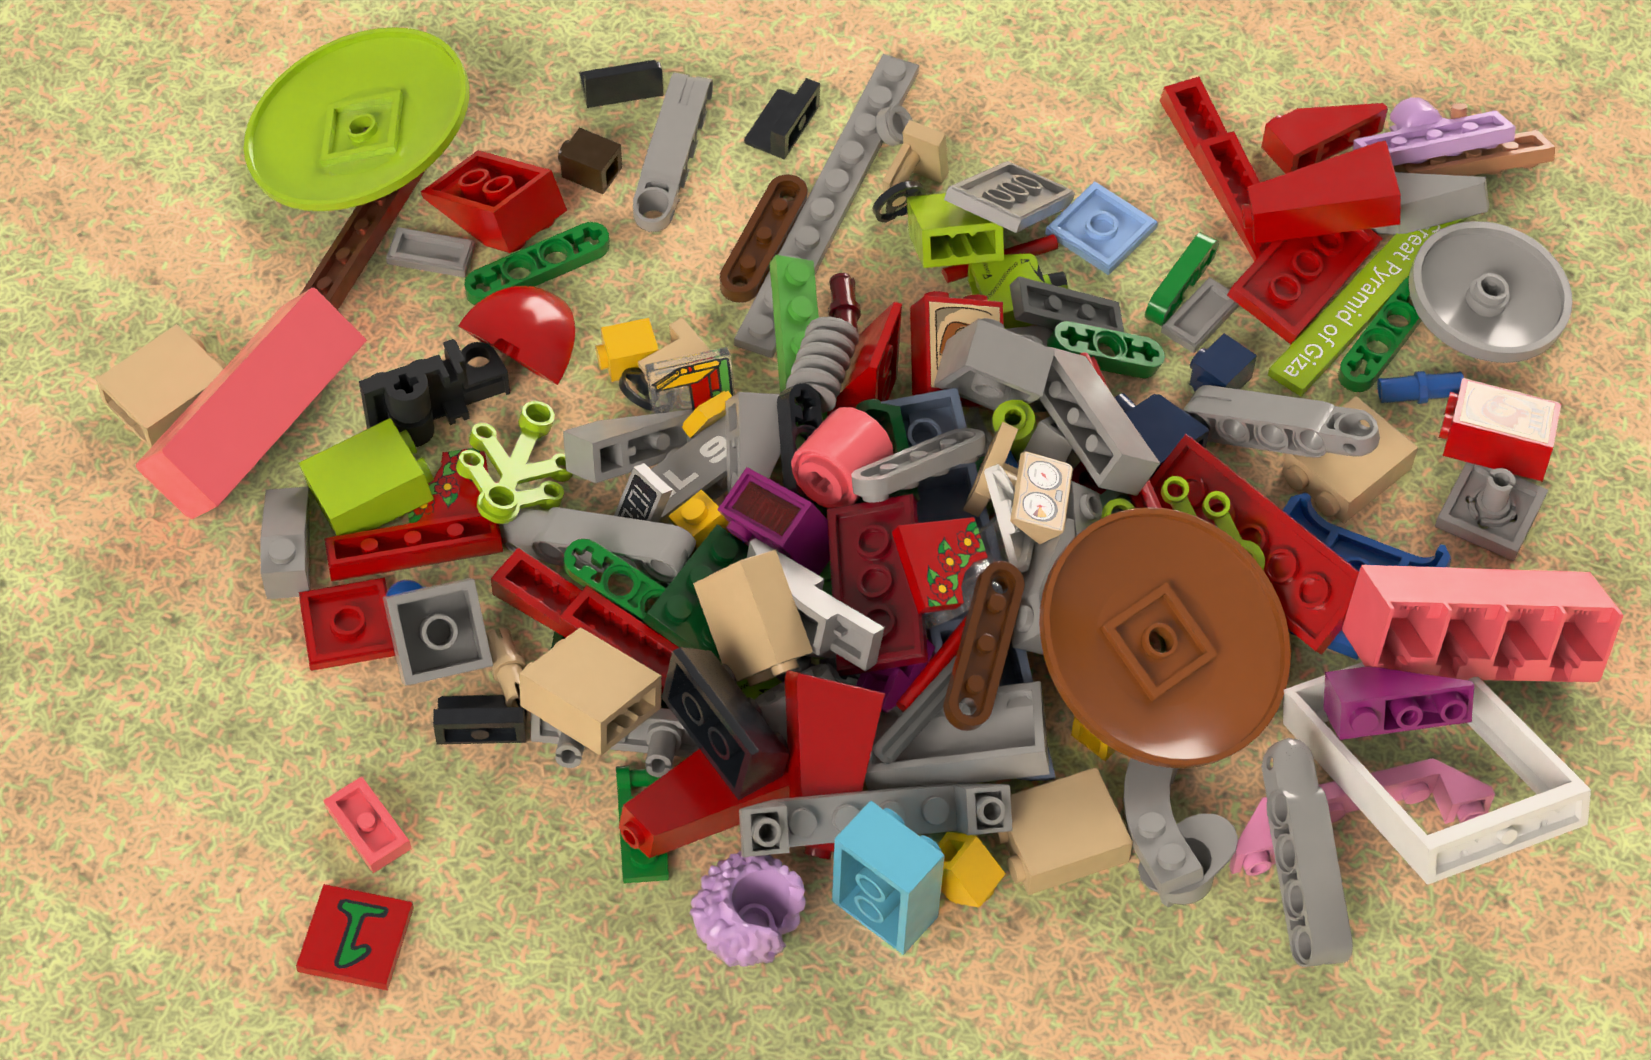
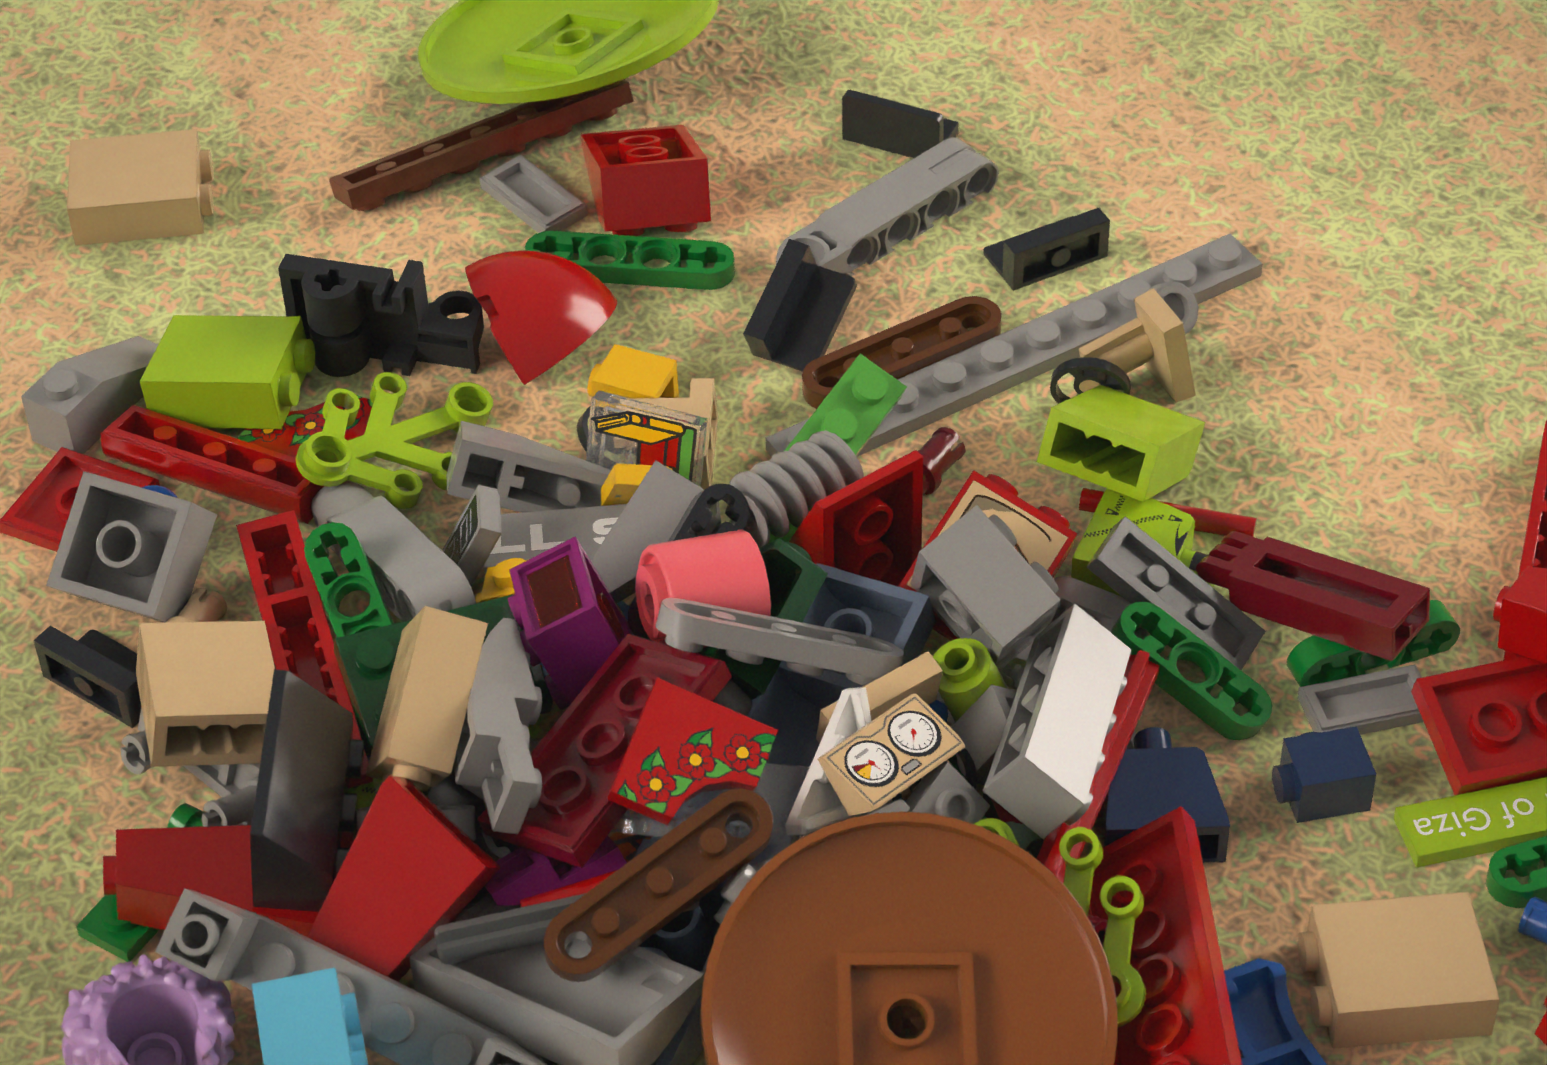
camera: 40 degrees right, 10 degrees down
(250, 404) = (181, 229): coral piece -> none
(590, 160) = (784, 184): dark brown brick -> none
(685, 243) = (798, 309): none -> black panel
(1010, 196) = (1215, 436): light grey tile -> none
(1101, 227) = (1335, 525): light blue tile -> none
(1138, 264) = (1318, 593): none -> dark red hinge
(1282, 423) = (1326, 865): light grey piece -> none

